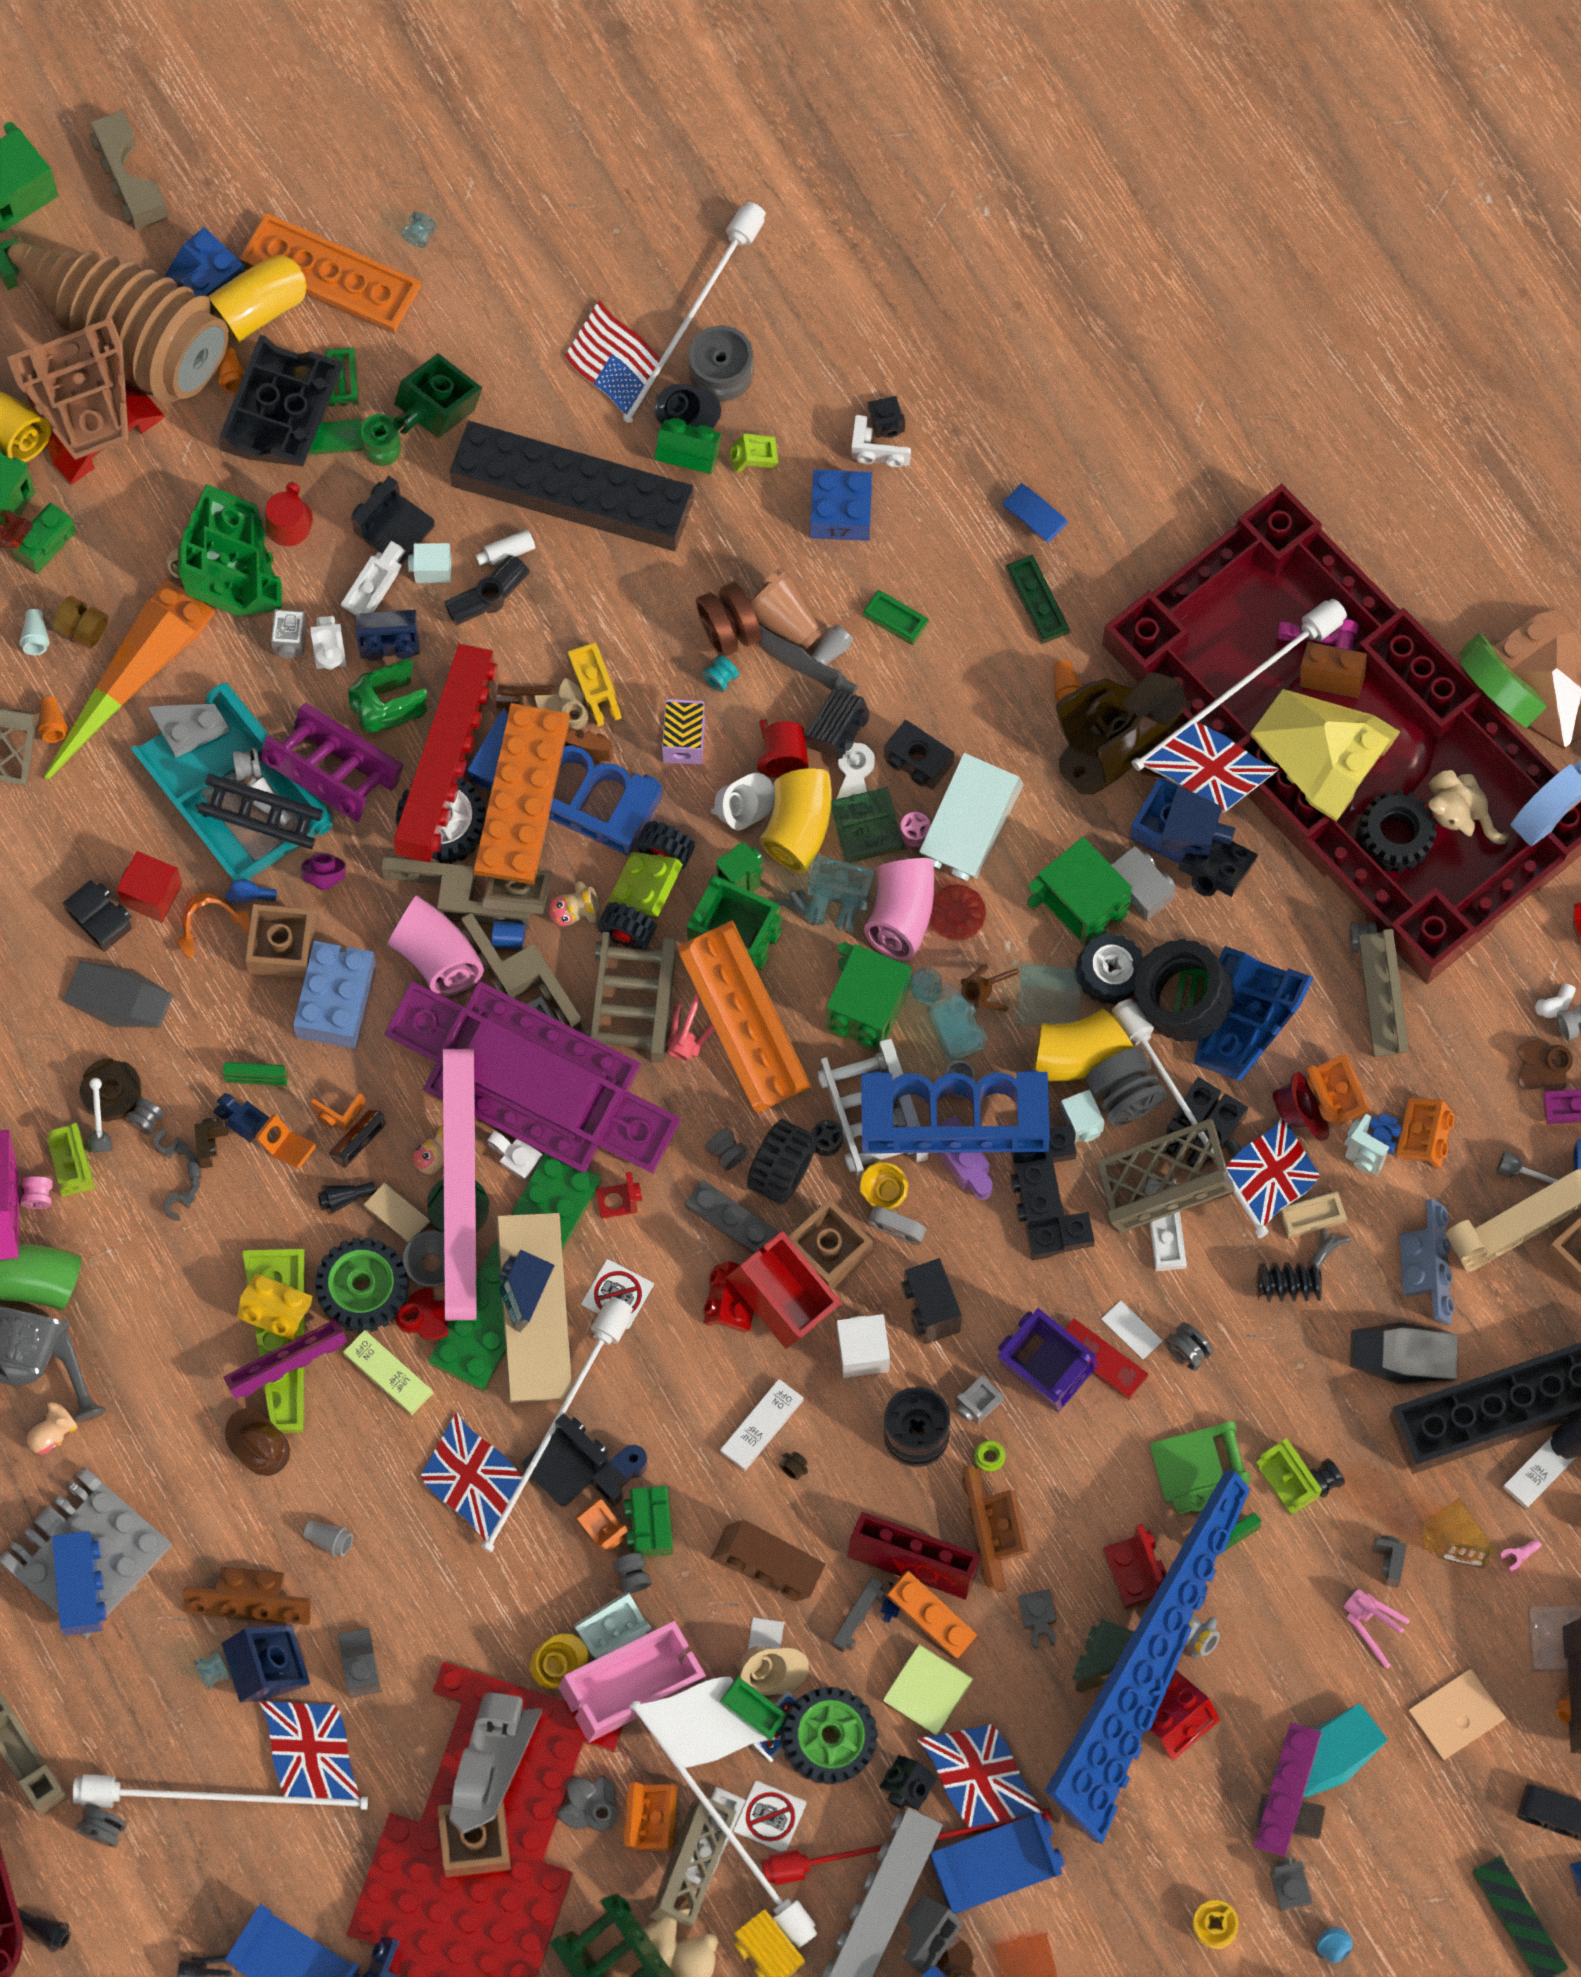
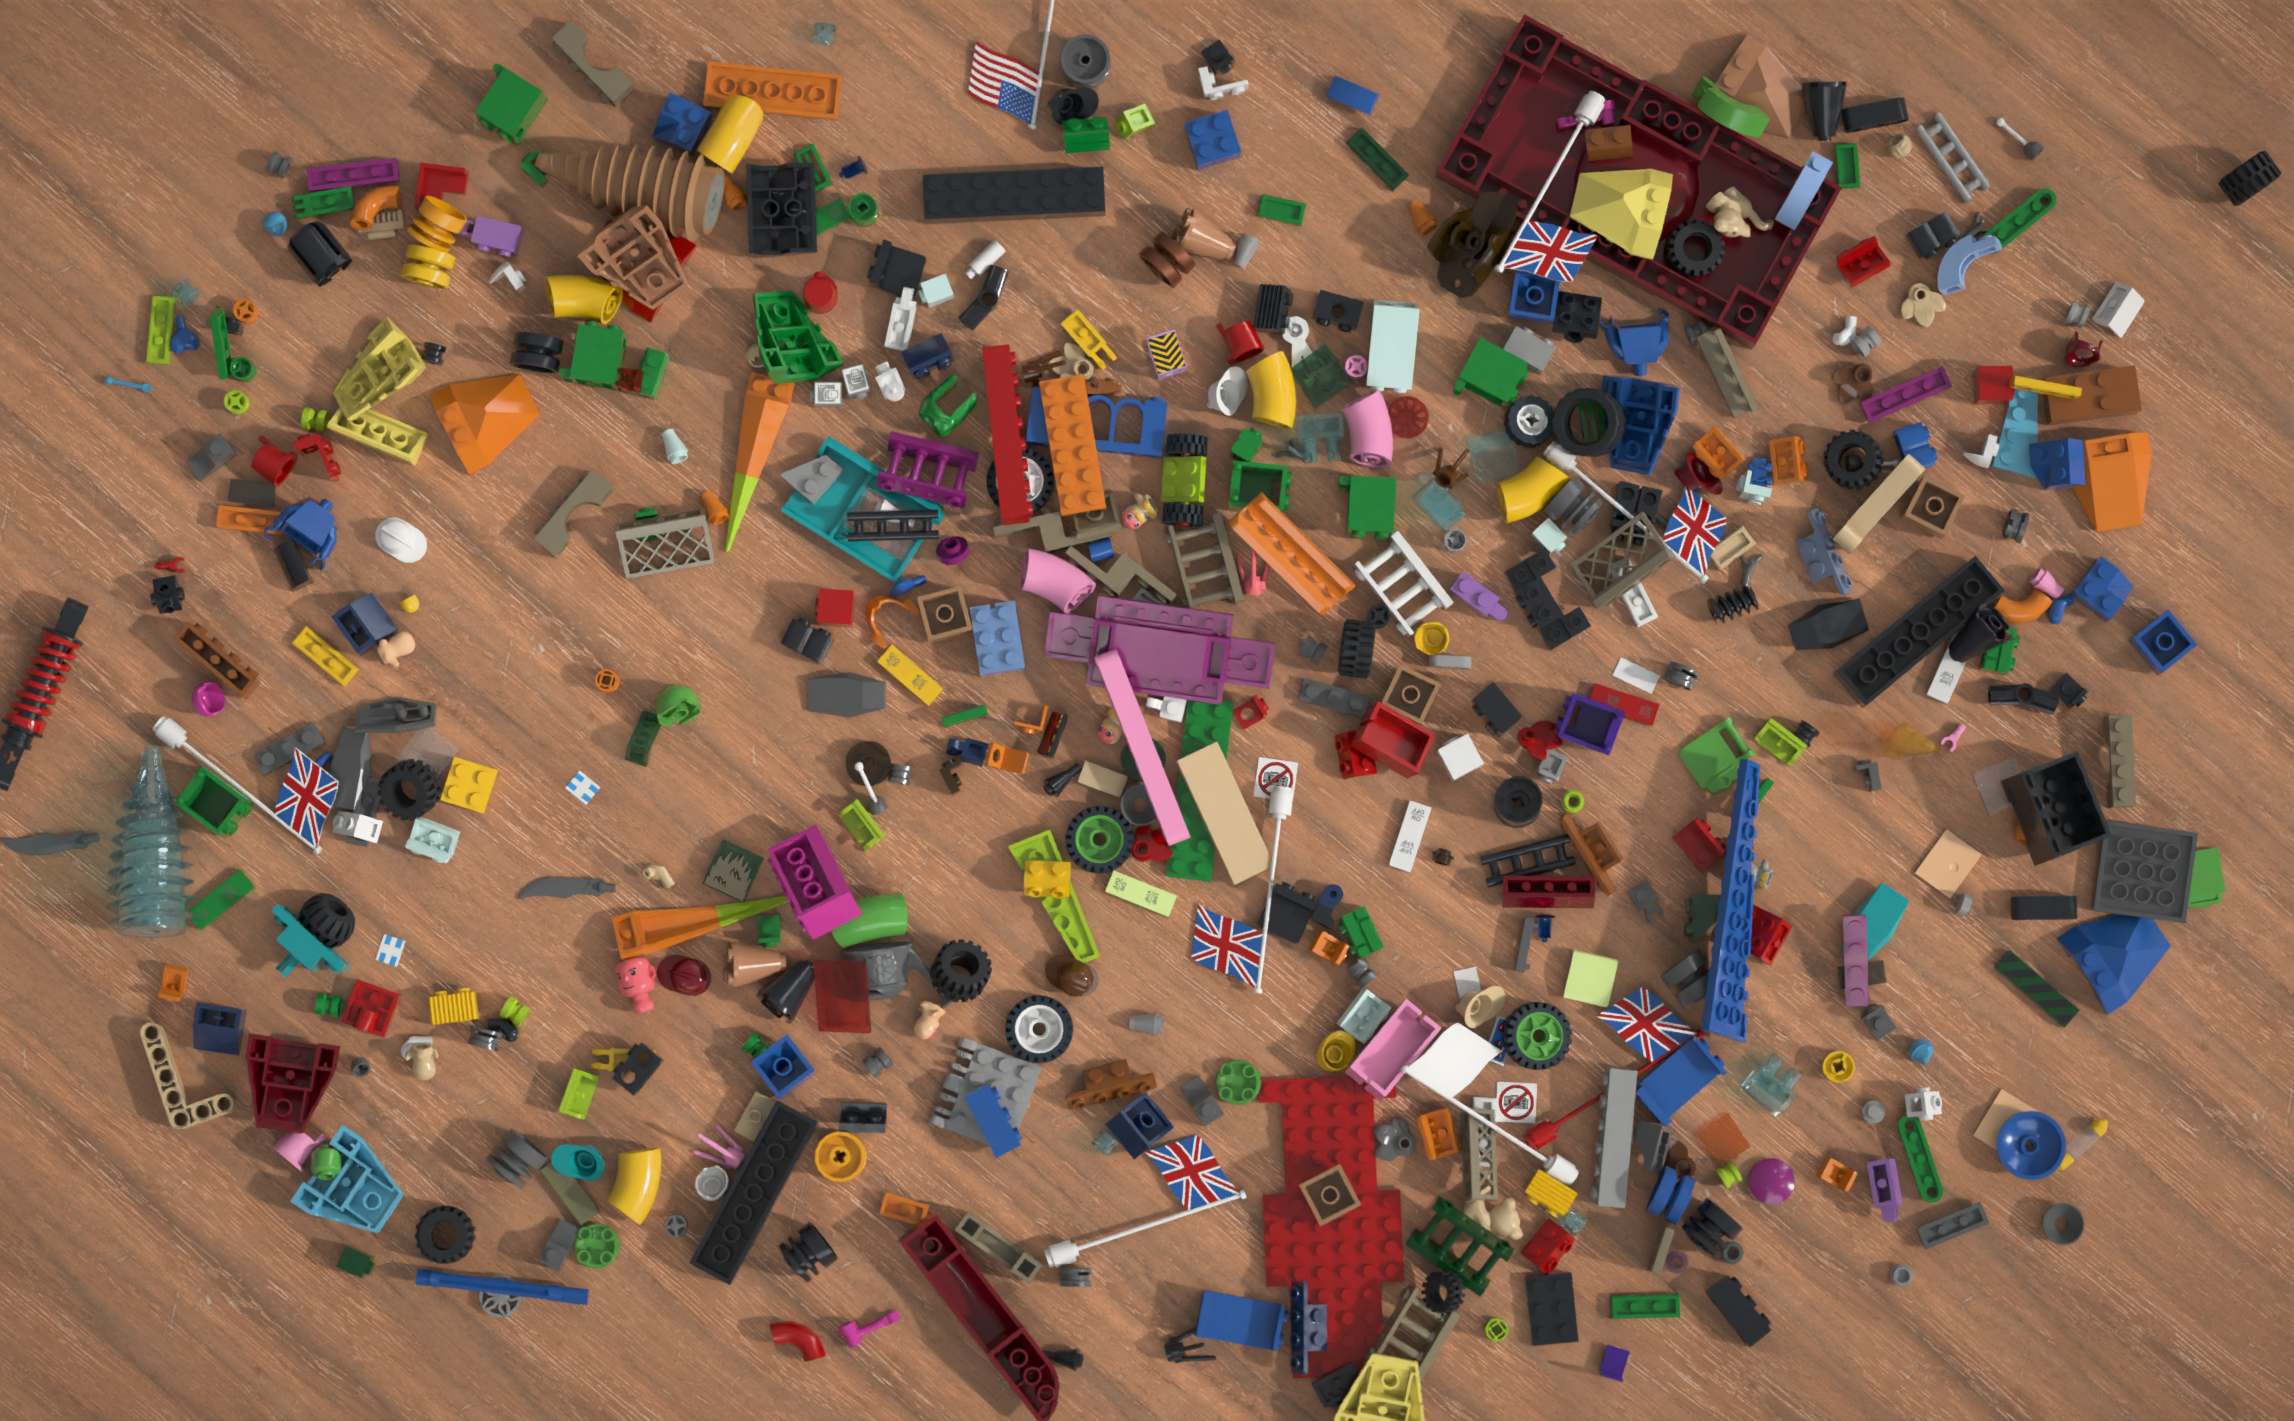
camera: 20 degrees left, 15 degrees up
(36, 1192) = (848, 857): bright pink wheel -> none
(77, 620) = (704, 427): pearl gold wheel -> none
(106, 1396) = (971, 959): none -> black tyre
(182, 1470) = (1039, 1010): none -> wheel
(193, 1172) = (949, 799): dark grey piece -> none
(208, 1002) = (910, 675): none -> yellow tile
(246, 764) = (867, 495): light grey wheel -> none
(247, 636) = (827, 394): none -> light grey brick
(285, 1359) = (1070, 914): magenta plate -> none
(385, 392) = (853, 169): none -> clear blue piece
(416, 1655) = (1238, 1082): none -> bright green dish
(435, 397) = (891, 165): dark green brick -> none
(491, 1759) = (1321, 1139): light grey panel -> none
(523, 1285) = (1217, 808): dark blue slope -> none
(720, 673) = (1174, 300): teal wheel -> none
(753, 1708) = (1481, 1038): green tile -> none
(768, 1560) = (1450, 931): reddish brown wedge -> none
(801, 661) = (1229, 269): dark grey sword -> none
(907, 1783) = (1601, 1048): black brick -> none
(919, 1500) = (1536, 847): none -> black bar
(924, 979) = (1407, 476): clear light blue wheel -> none
(931, 1614) = (1574, 927): orange plate -> none
(975, 1361) = (1542, 739): none -> red plate
(1027, 1091) = (1508, 537): blue fence -> none
(1057, 1723) = (1690, 977): none -> dark grey wheel
(1110, 1917) = (1768, 1089): none -> clear light blue brick
(1194, 824) = (1554, 299): dark blue torso -> none
(1284, 920) = (1638, 342): none -> blue torso
(1363, 1607) = (1860, 814): bright pink plant -> none
(1459, 1772) = (1963, 904): none -> light grey tile
(1503, 1134) = (1843, 443): none -> black tyre

